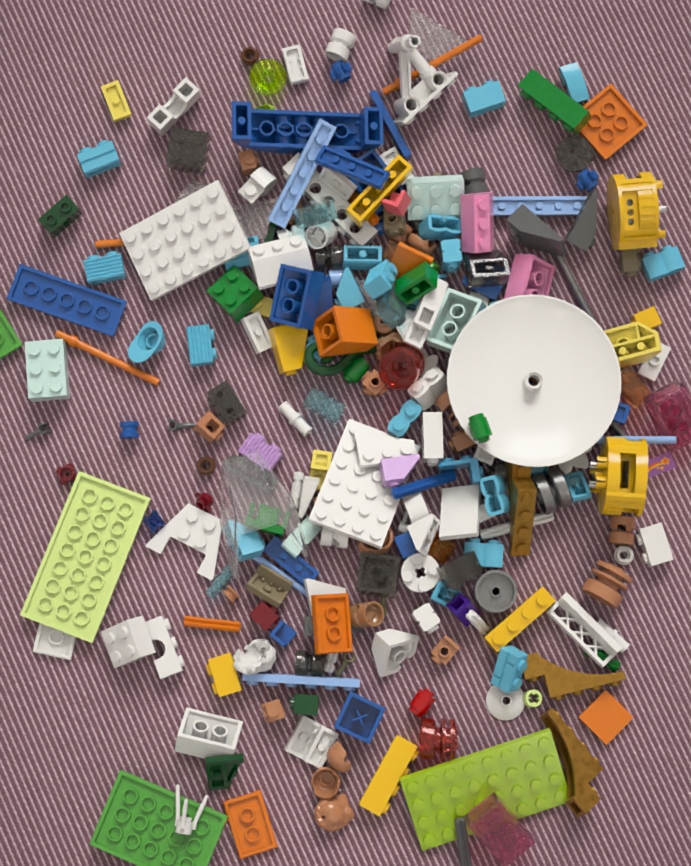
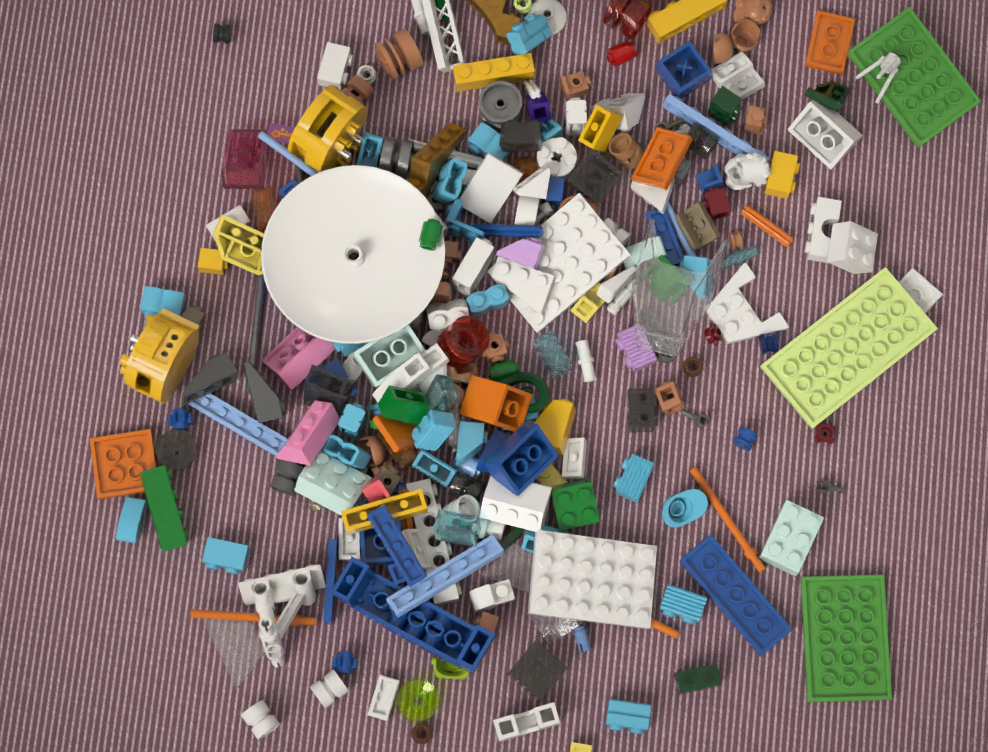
camera: 150 degrees left, 5 degrees down
(166, 195) = (582, 639): none -> medium blue pin
(398, 617) = (600, 128): none -> yellow brick

